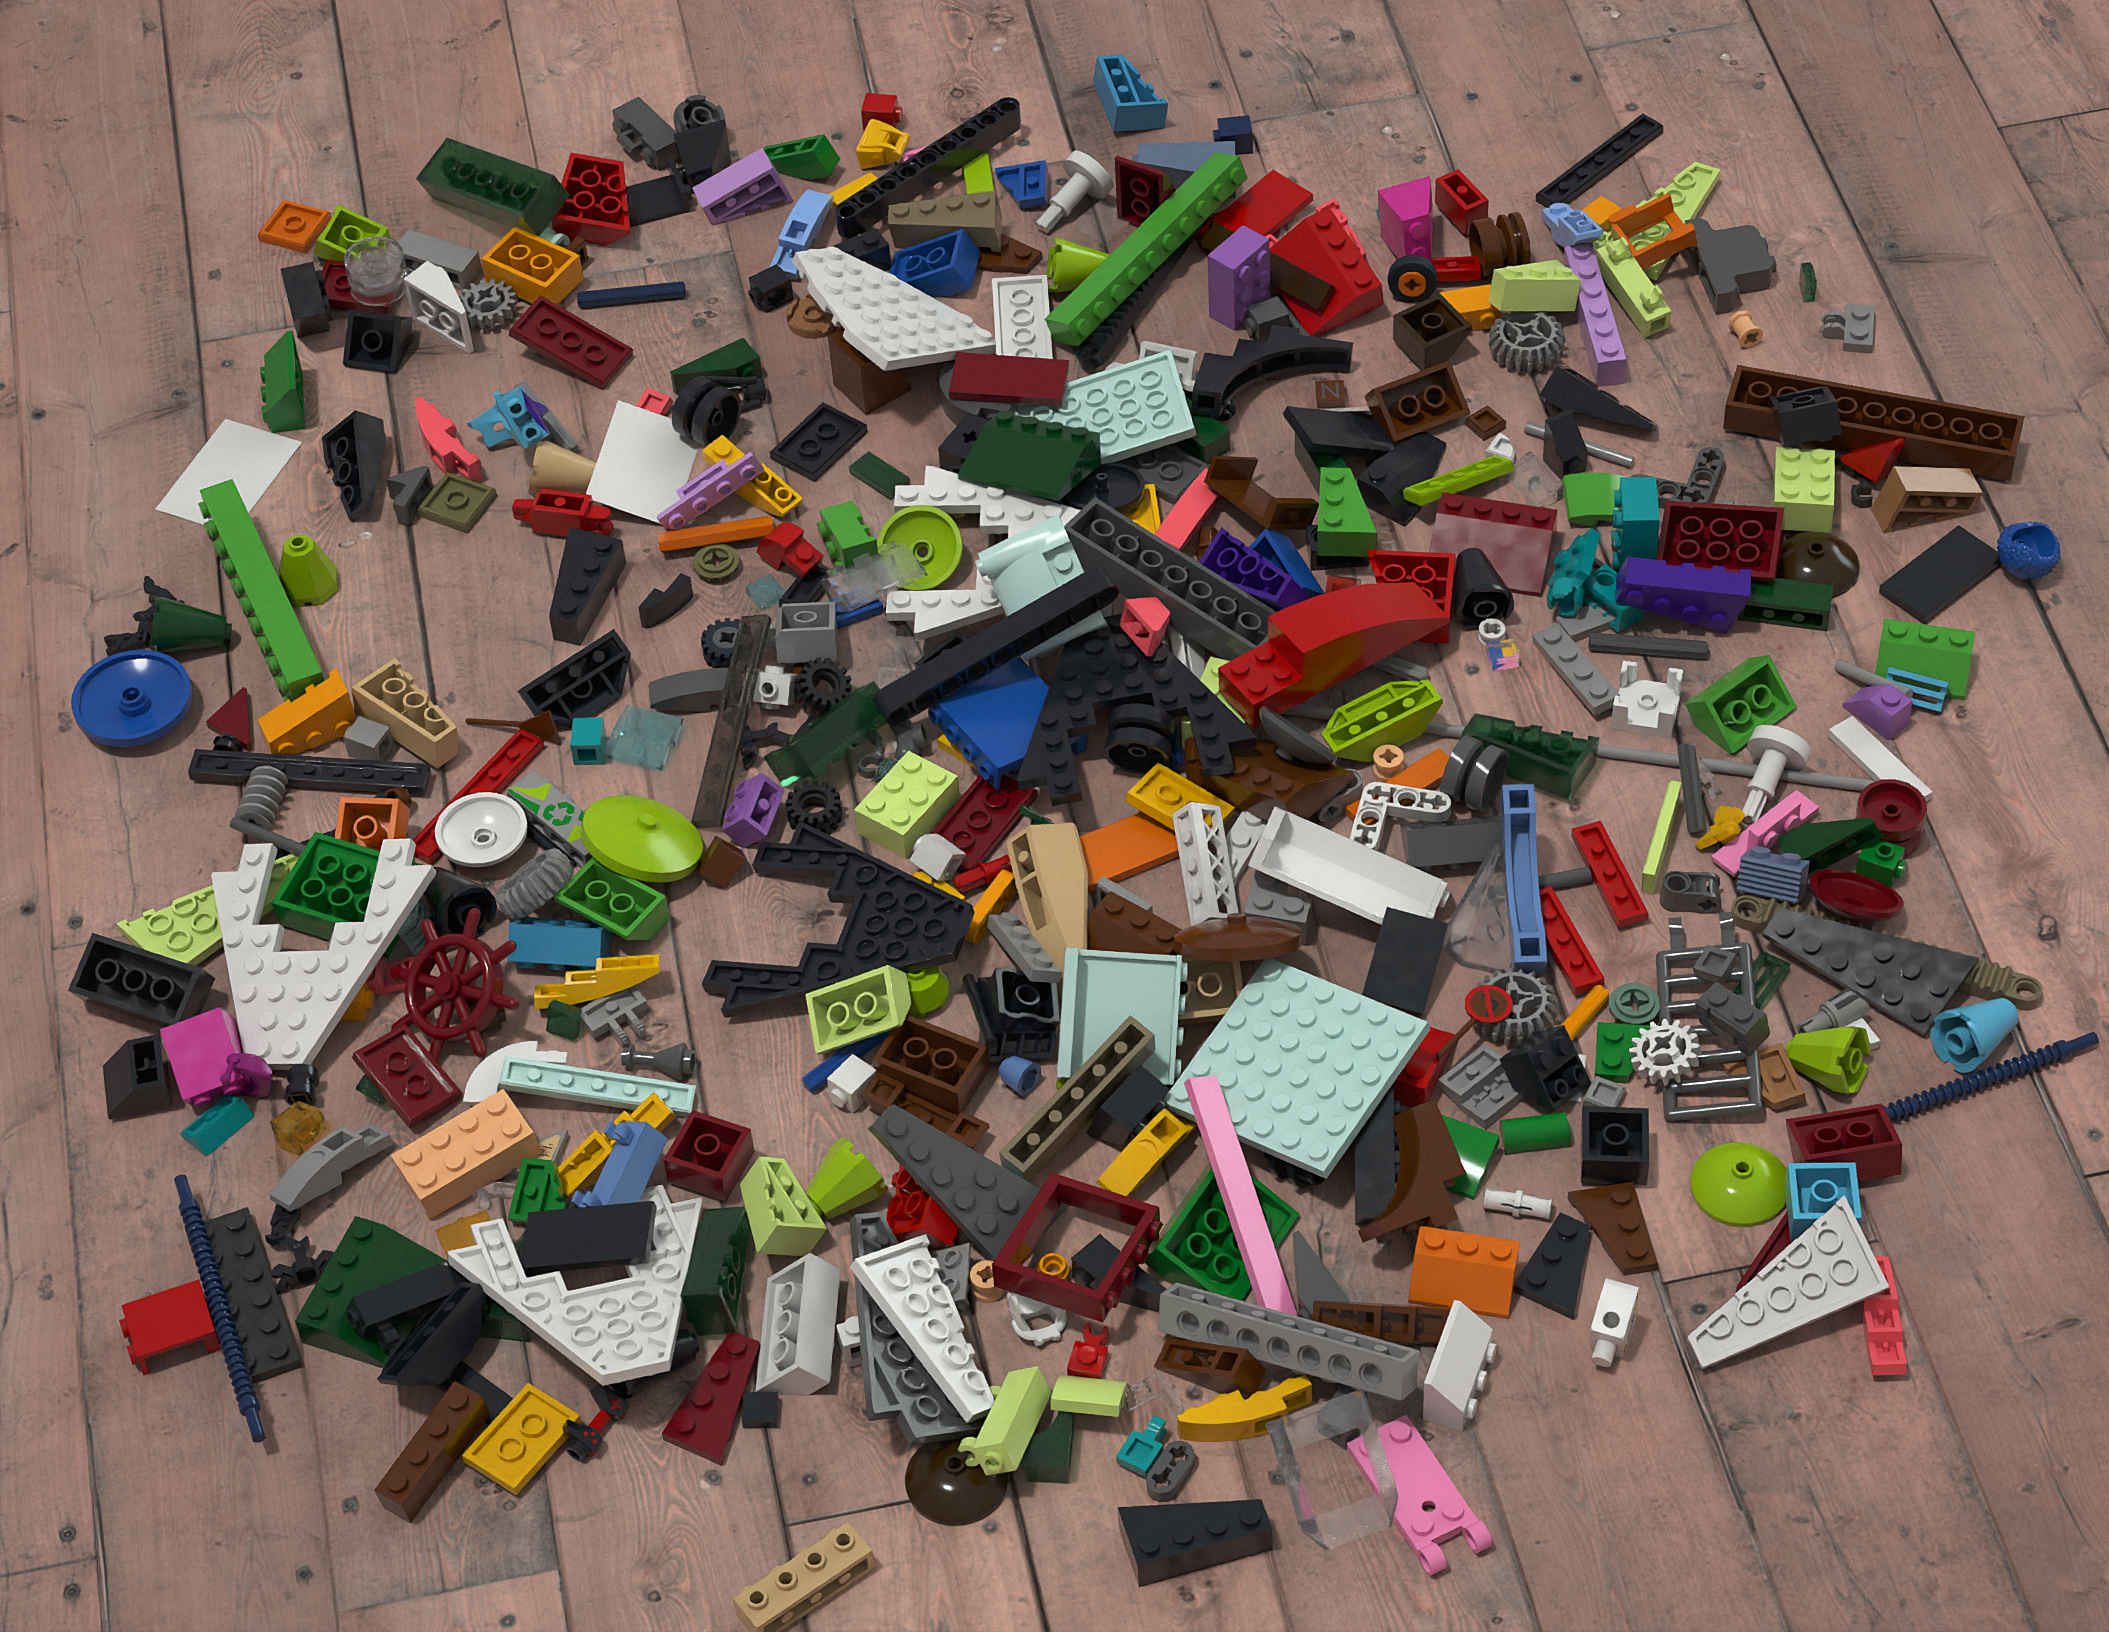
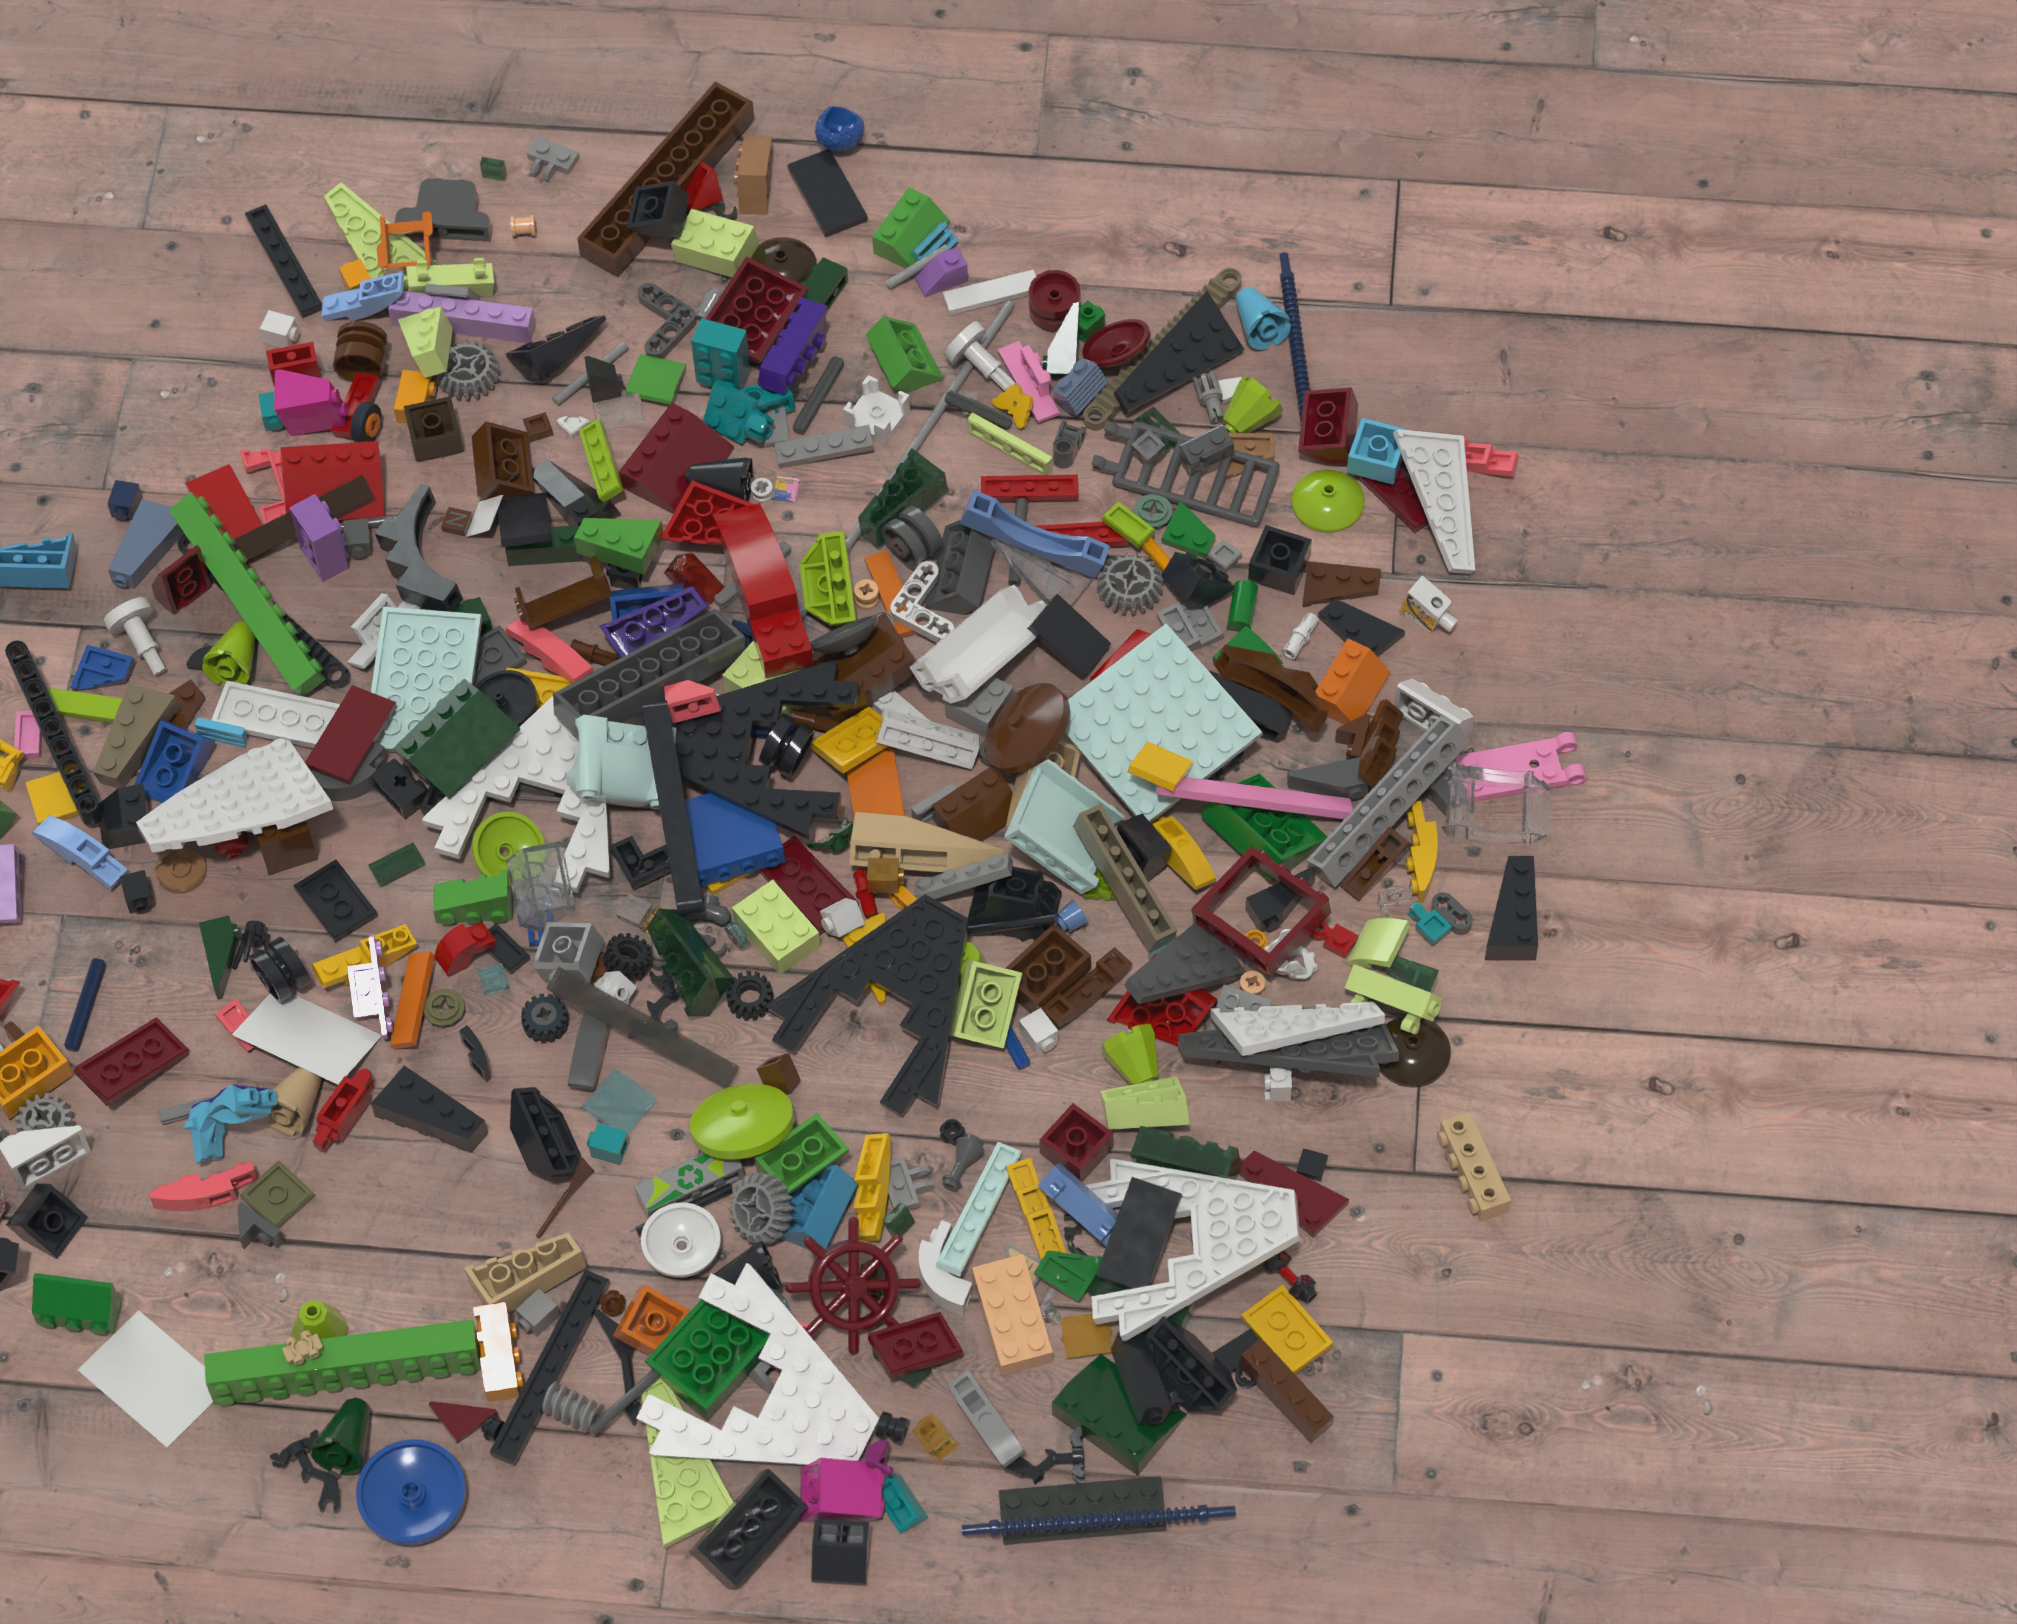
camera: 75 degrees left, 10 degrees up
(168, 1322) = (1099, 1565): red panel -> none
(250, 546) = (303, 1349): none -> tan piece
(355, 456) = (195, 1264): black wedge -> none
(490, 778) = (623, 1239): red tile -> none
(698, 1034) = (951, 1125): none -> black plate
(752, 810) = (740, 1036): medium lavender brick -> none
(798, 1328) = (1252, 1121): white slope -> none
(984, 291) = (222, 732): none -> medium azure tile
(995, 869) = (884, 875): none -> pearl gold brick
(1223, 1074) = (1160, 766): none -> yellow tile
(1392, 1292) = (1354, 735): none -> reddish brown slope
(1484, 1005) = (1134, 595): piece -> none
(1504, 181) = (279, 329): none -> white brick
(1594, 978) = (1128, 525): none -> lime tile
(1614, 295) = (451, 291): none -> light grey tile
(1665, 1052) = (1204, 507): white gear -> none

